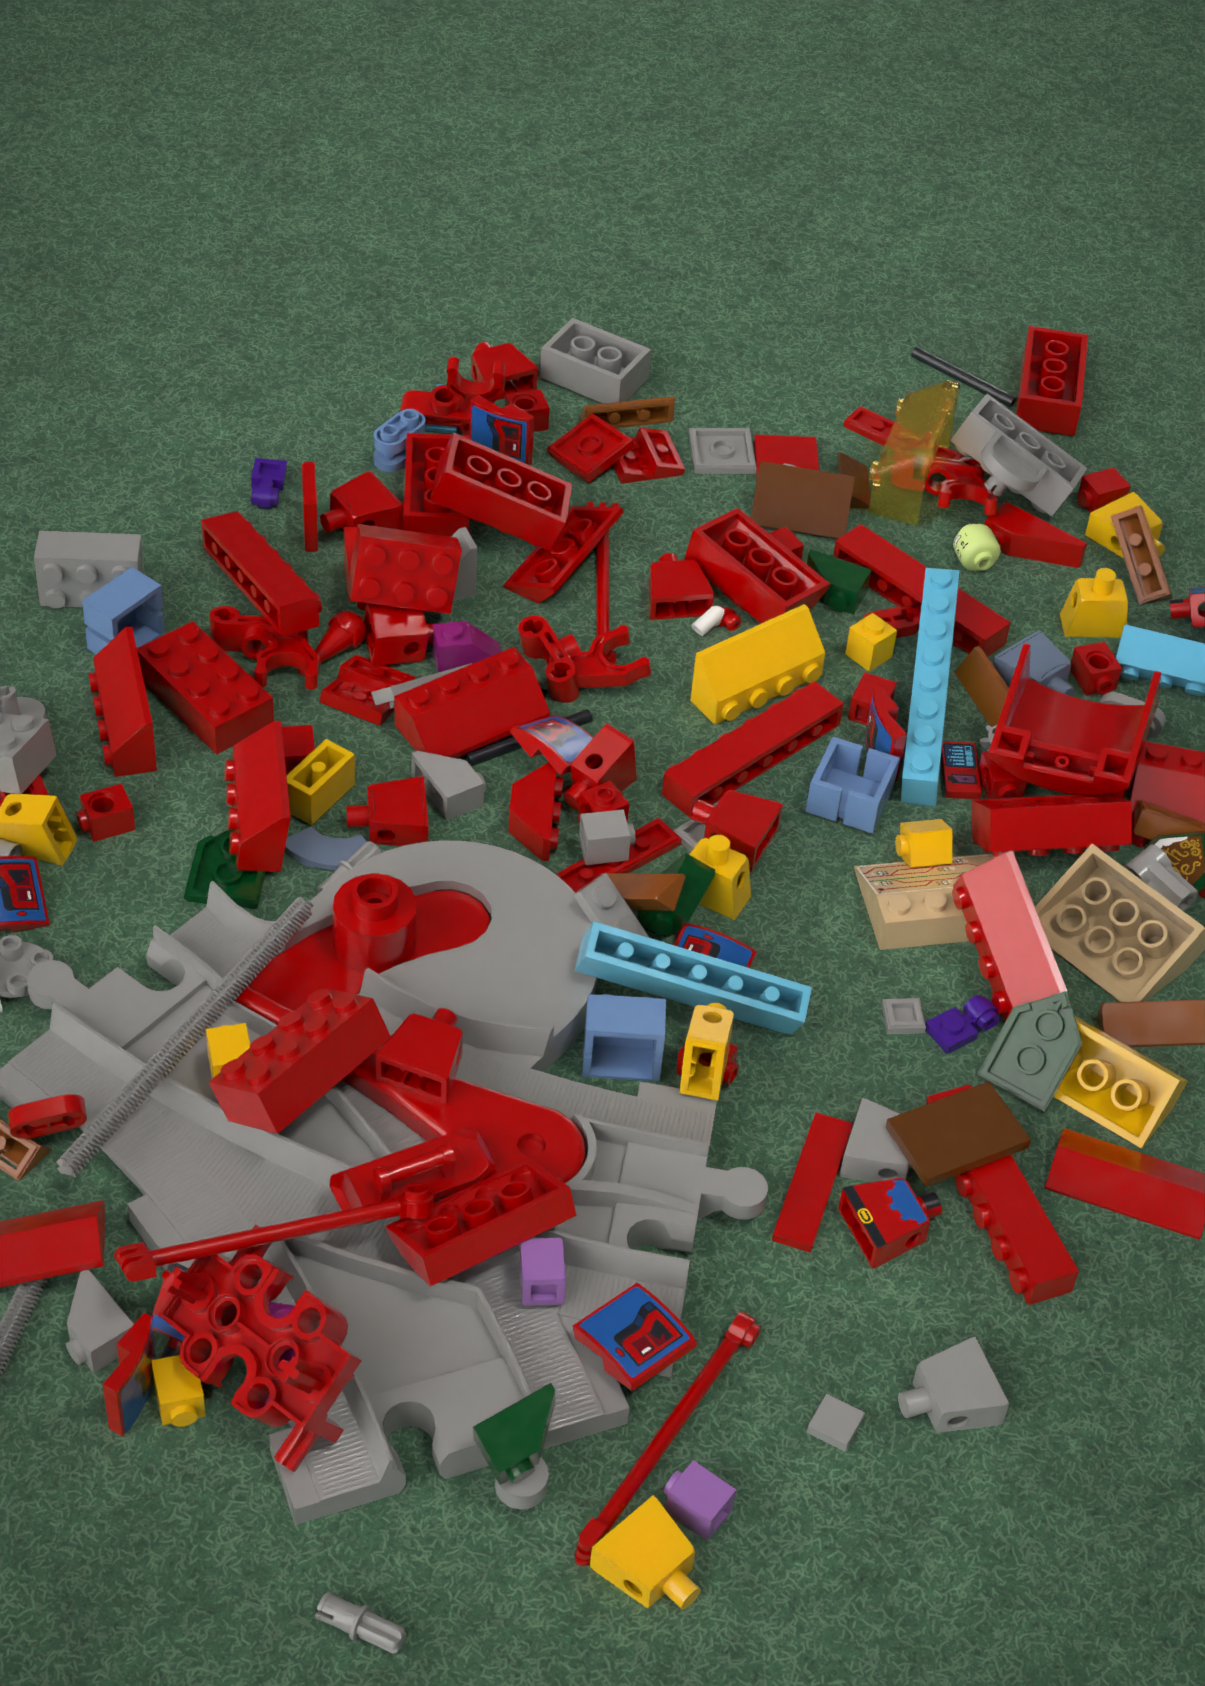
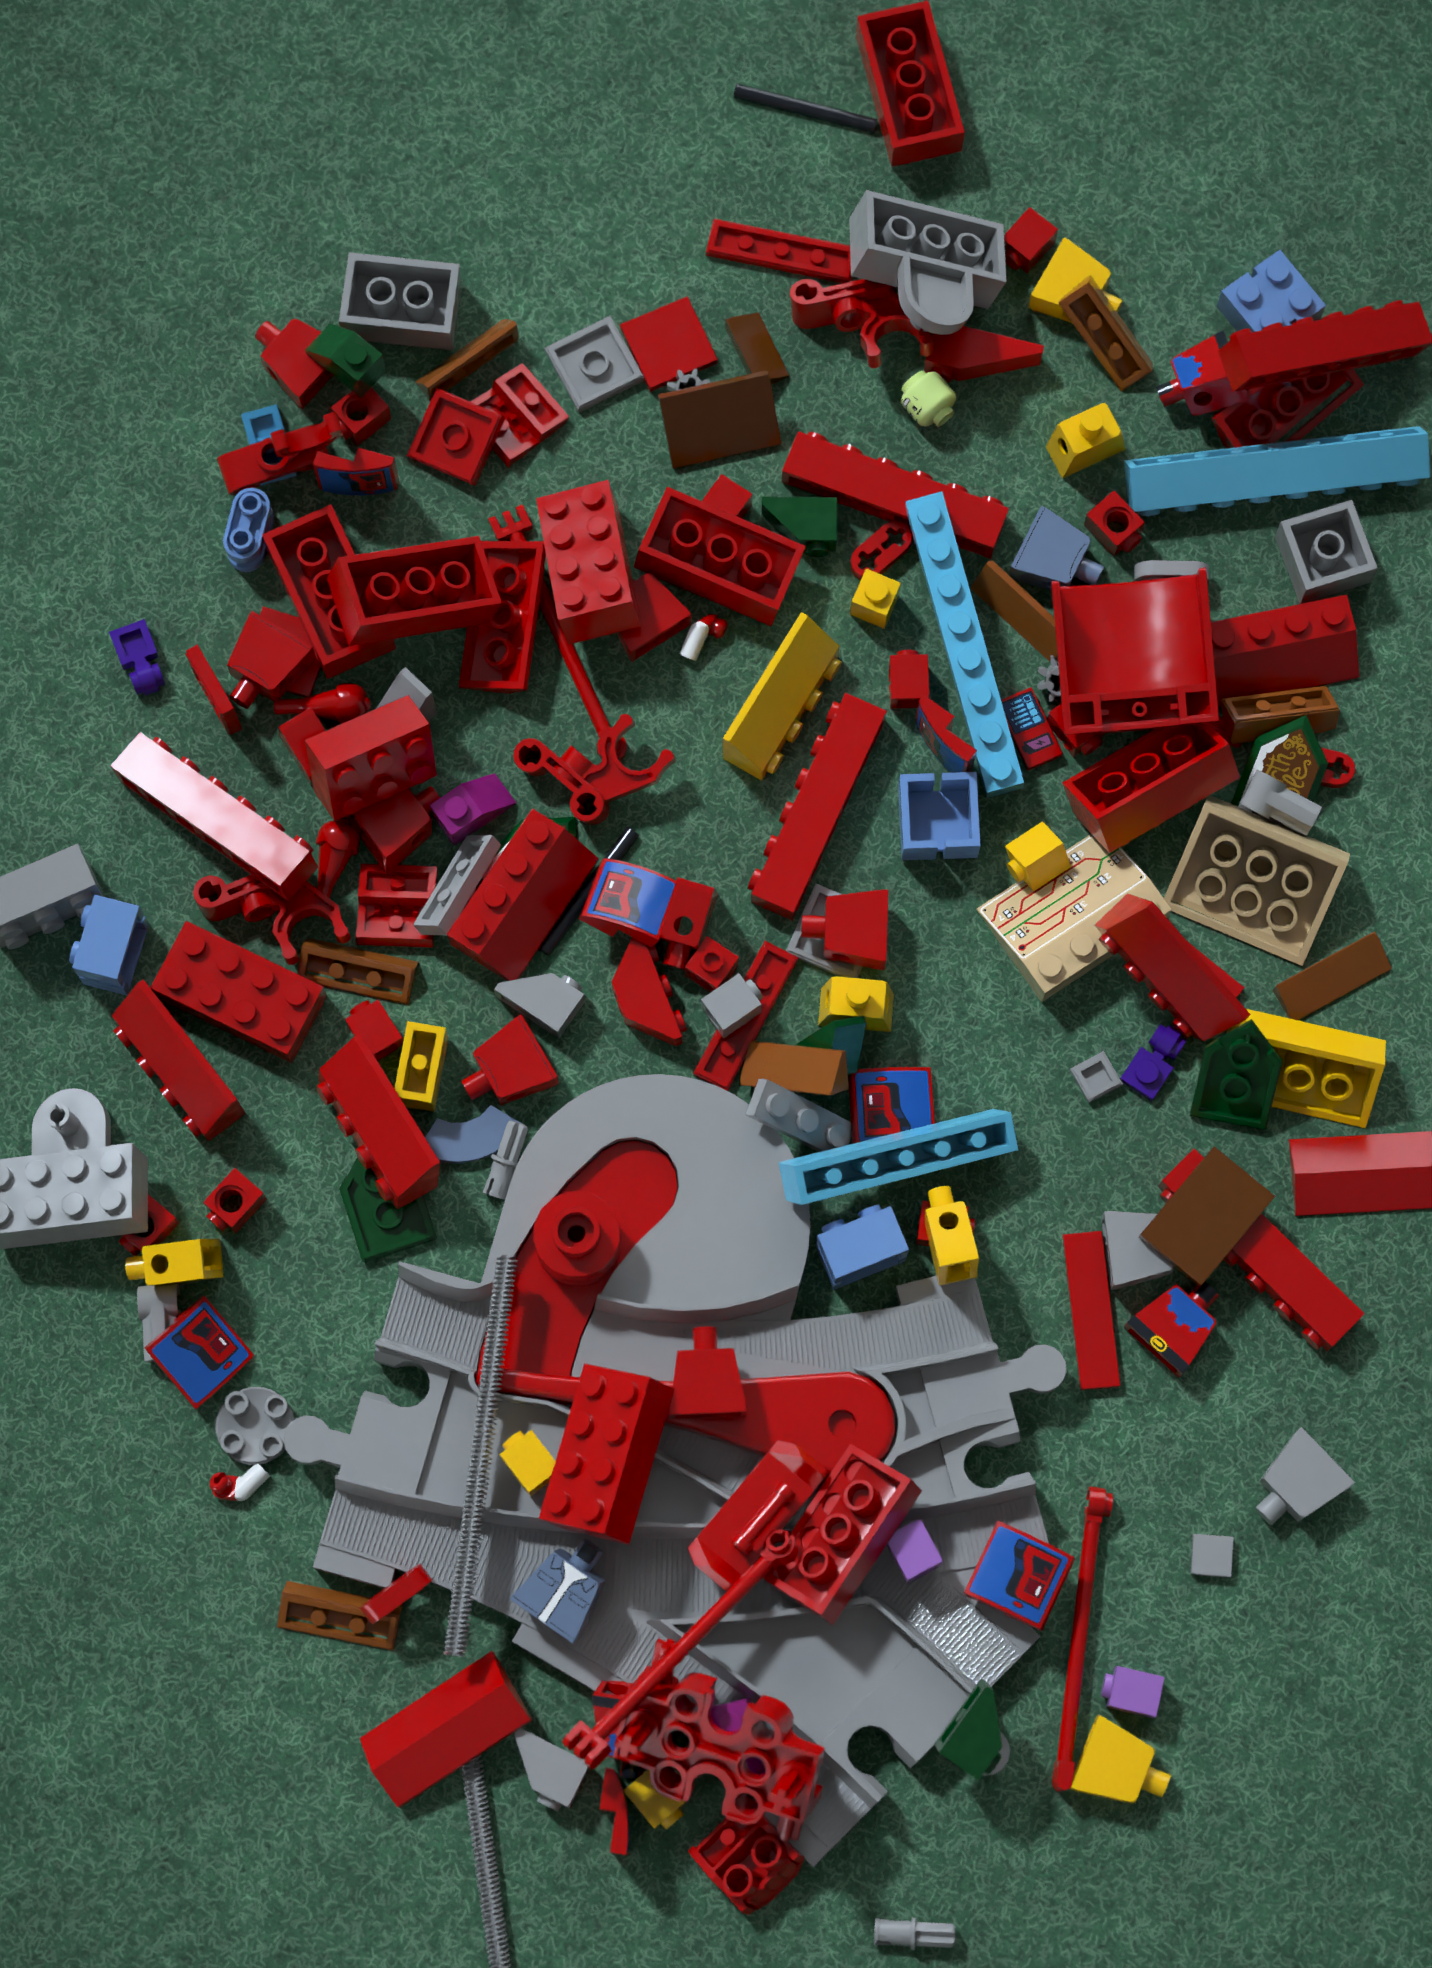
camera: 20 degrees left, 30 degrees up
(198, 1164) = (564, 1590): none -> sand blue torso
(237, 1481) = (752, 1853): none -> red slope
(310, 712) = (358, 966): none -> dark orange slope
(537, 368) = (348, 358): none -> dark green slope
(649, 533) = (588, 562): none -> red brick
(920, 428) = (815, 299): clear yellow windscreen -> none

